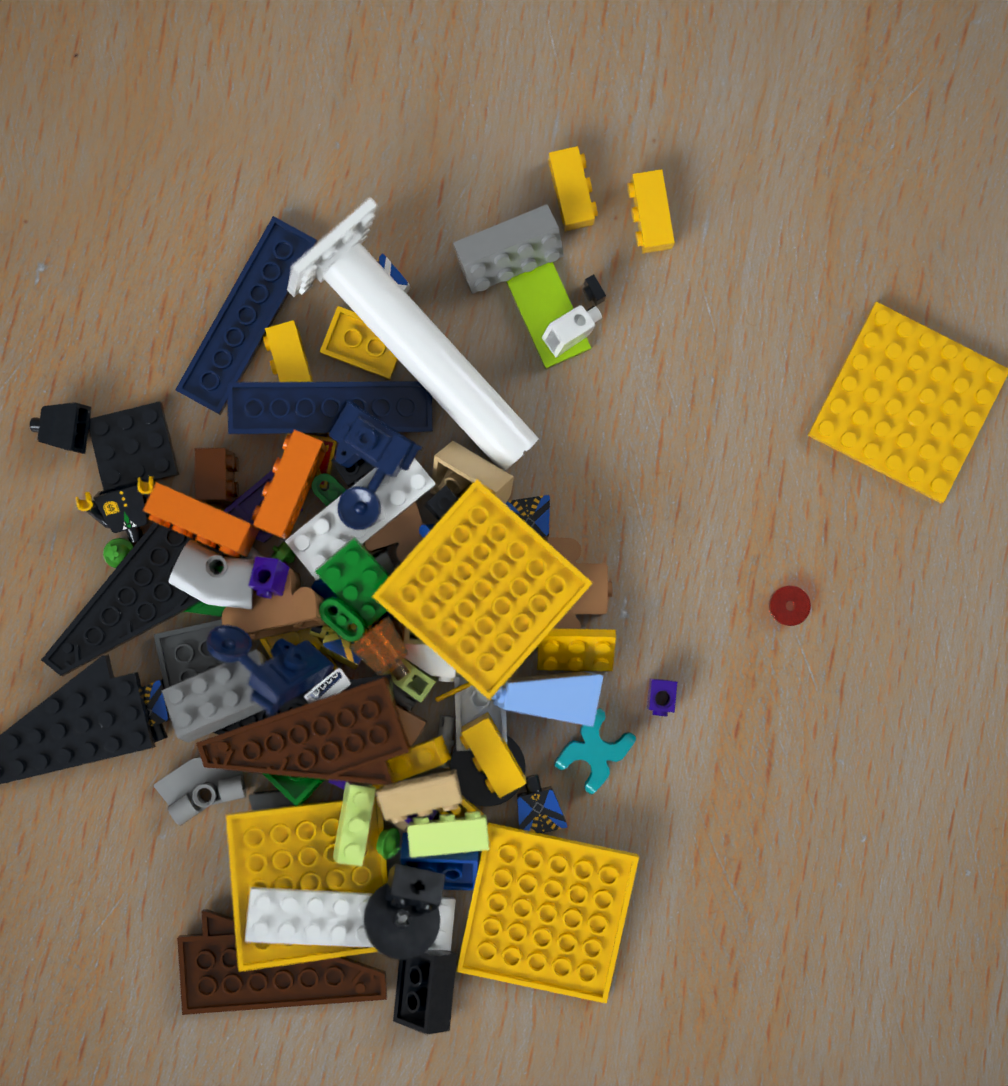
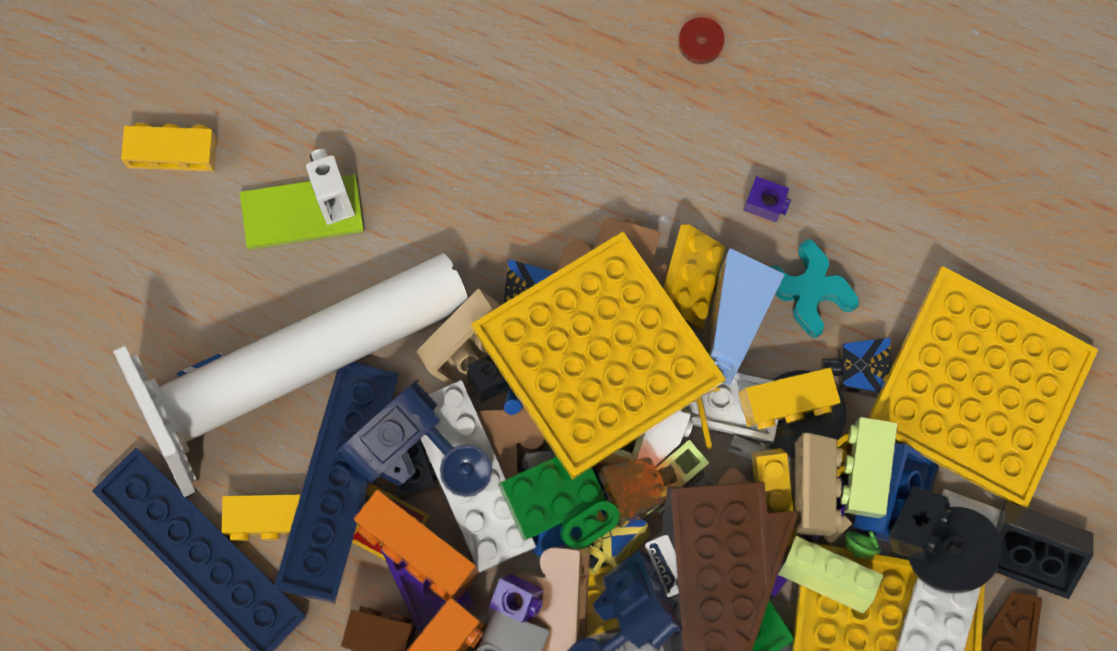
camera: 75 degrees left, 10 degrees down
(283, 553) = (489, 580): bright green hat -> none
(330, 495) = (437, 505): green plate -> none
(357, 345) = (273, 431): yellow plate -> none
(509, 249) = (217, 229): light grey brick -> none
(593, 290) = (291, 153): black plate -> none
(651, 211) = (222, 69): yellow brick -> none

